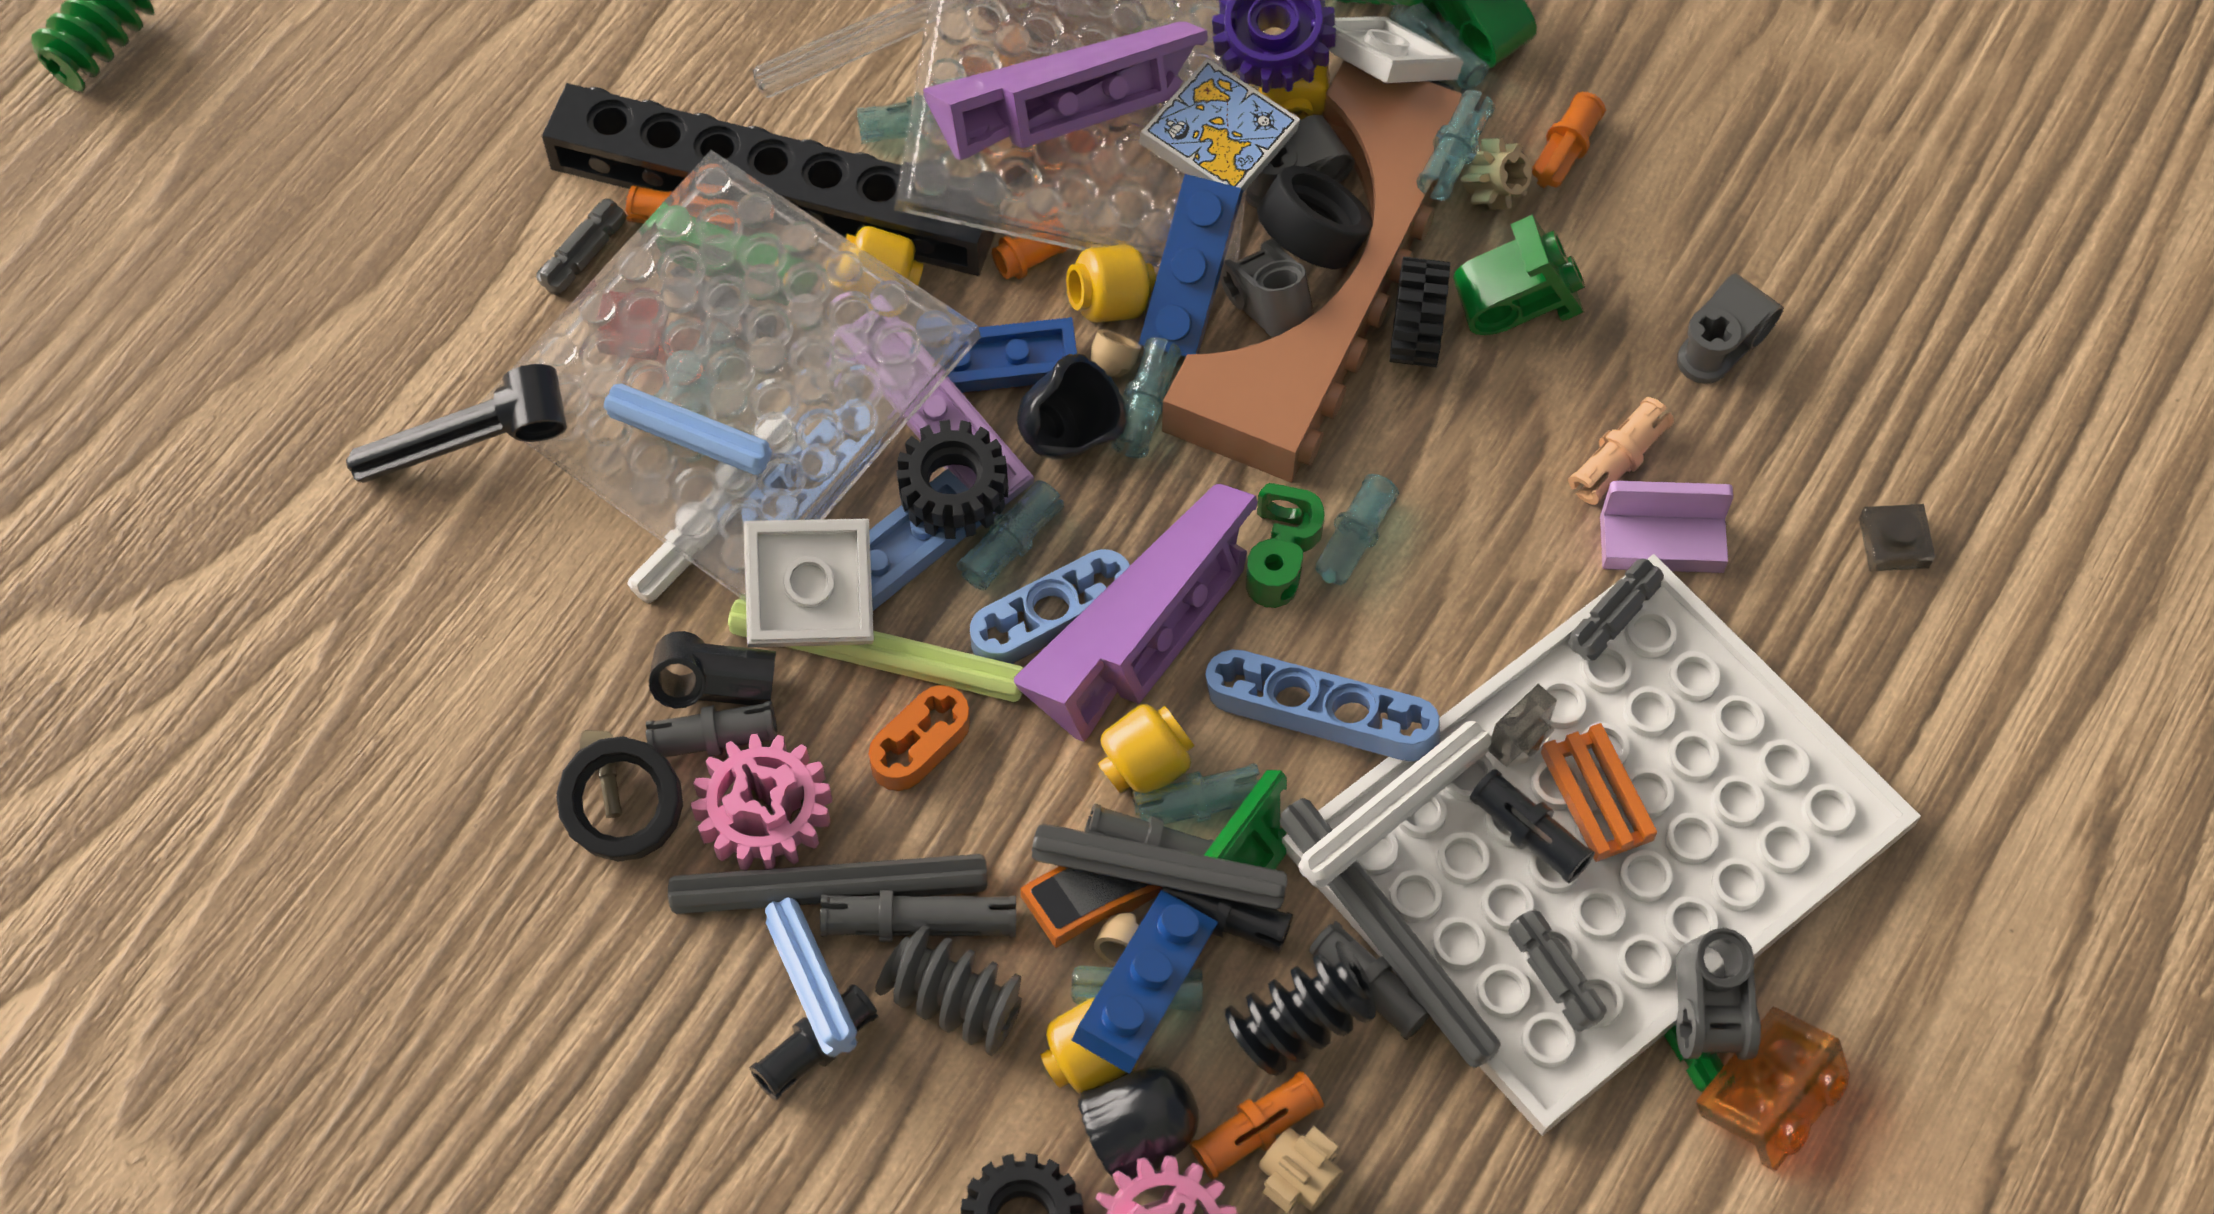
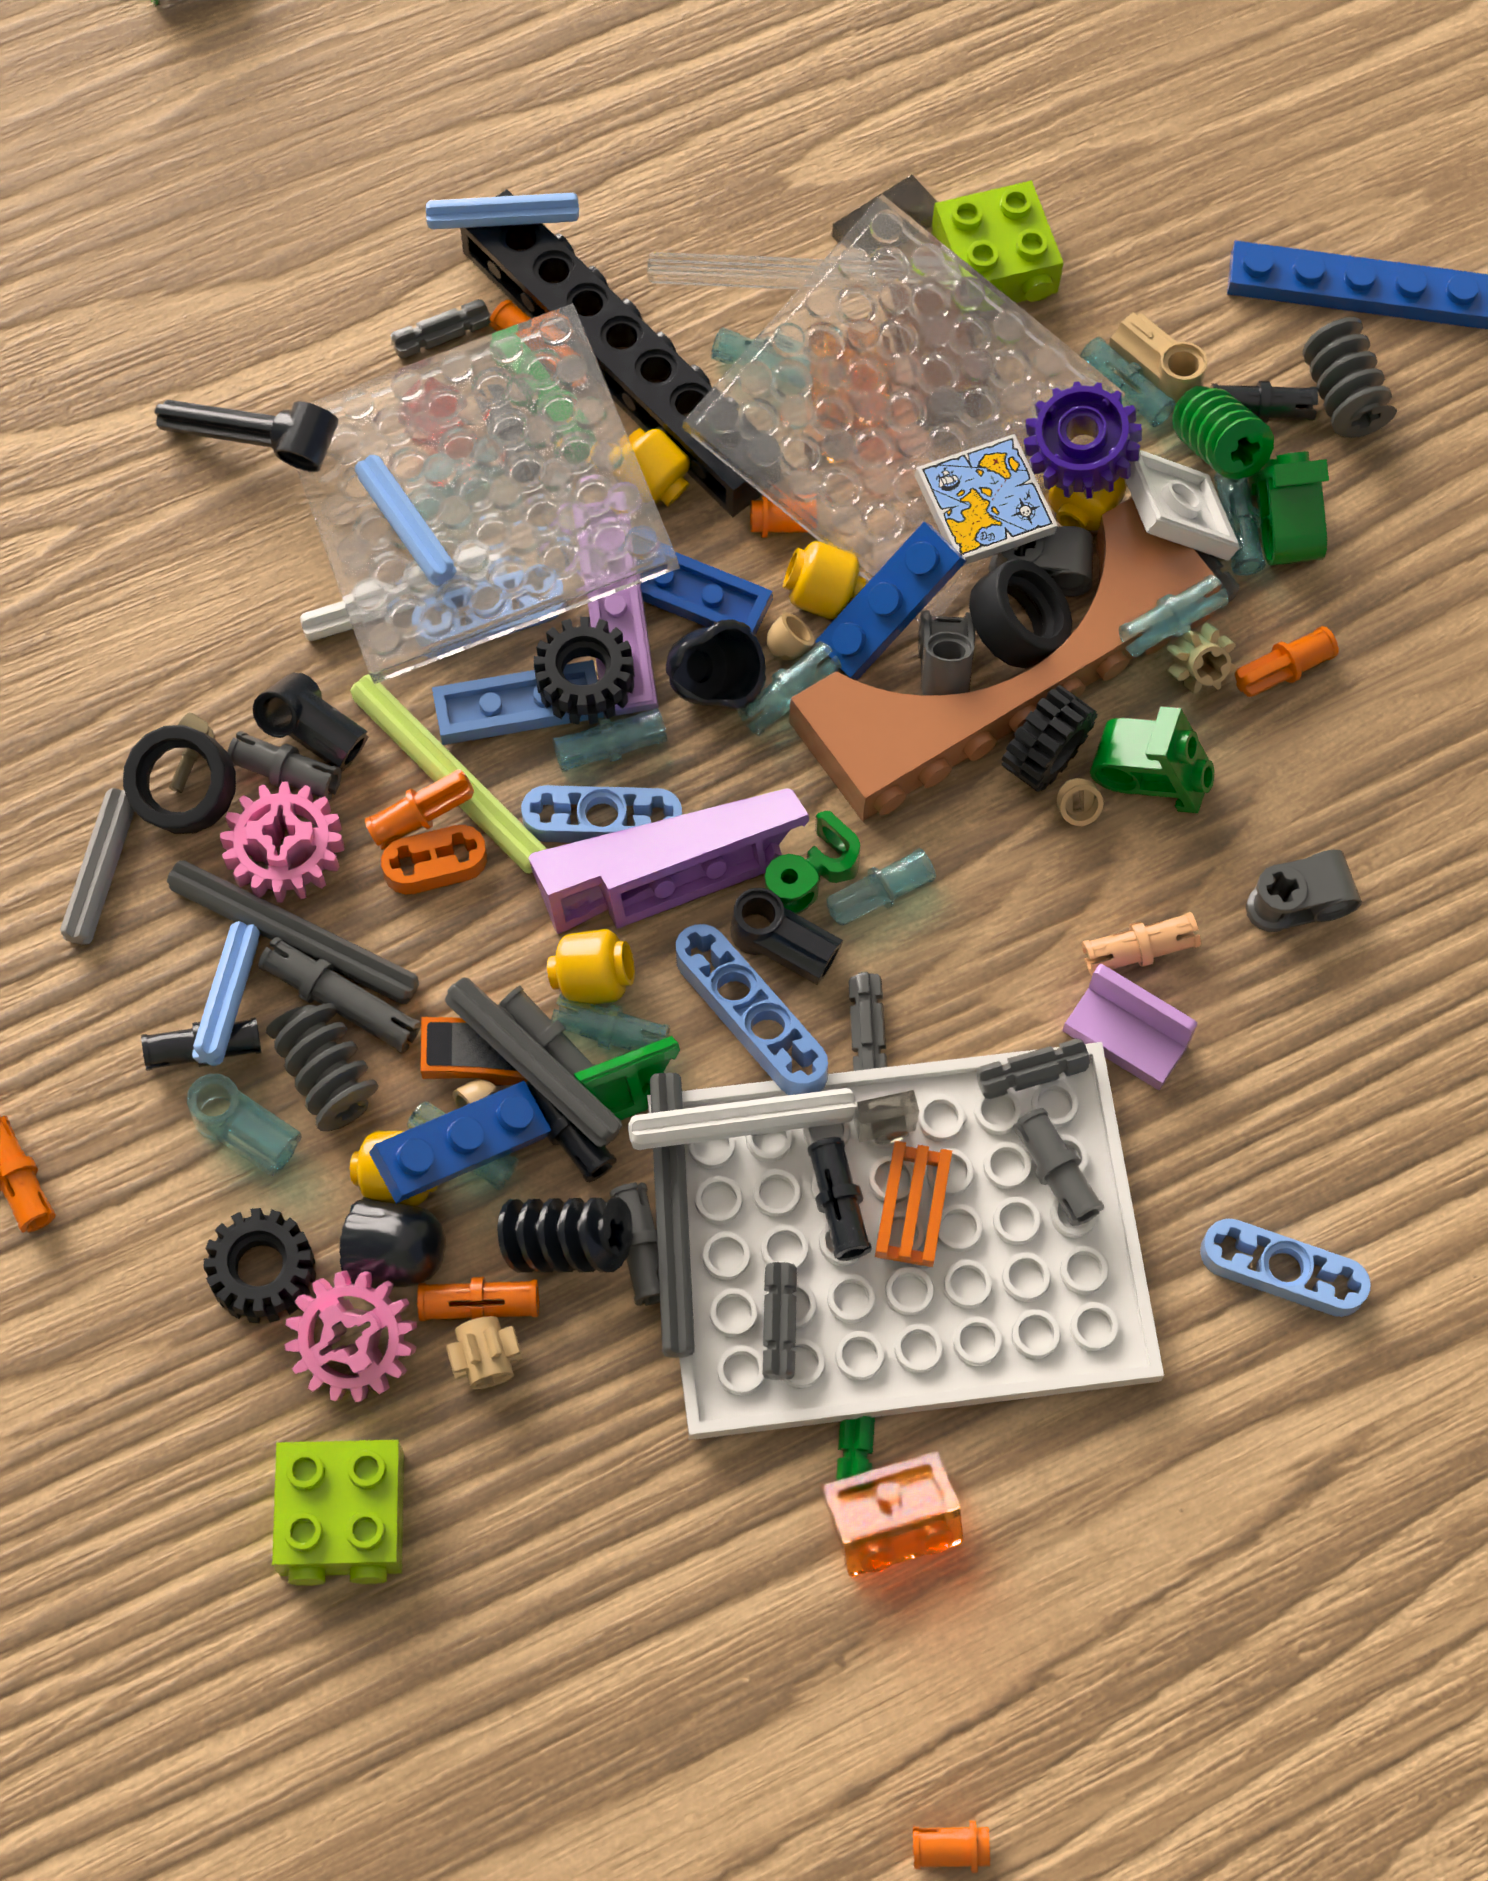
camera: 30 degrees right, 5 degrees up
(580, 102) = (502, 211): none -> light blue axle
(588, 932) = (97, 868): none -> light grey axle
(808, 582) = (419, 691): white tile -> none
(877, 695) = (419, 808): none -> orange axle
(918, 1095) = (244, 1126): none -> clear light blue piece
(1063, 90) = (875, 400): medium lavender wedge -> none
(1305, 621) = (787, 939): none -> black piece
(1430, 657) = (867, 1021): none -> dark grey axle
(1483, 350) = (1090, 801): none -> tan hinge
(1703, 682) = (1058, 1167): none -> dark grey pin
(1717, 1002) = (882, 1420): dark grey piece -> none
(1896, 537) = (1321, 1144): clear smoke plate -> none
(1965, 643) = (1322, 1294): none -> light blue beam

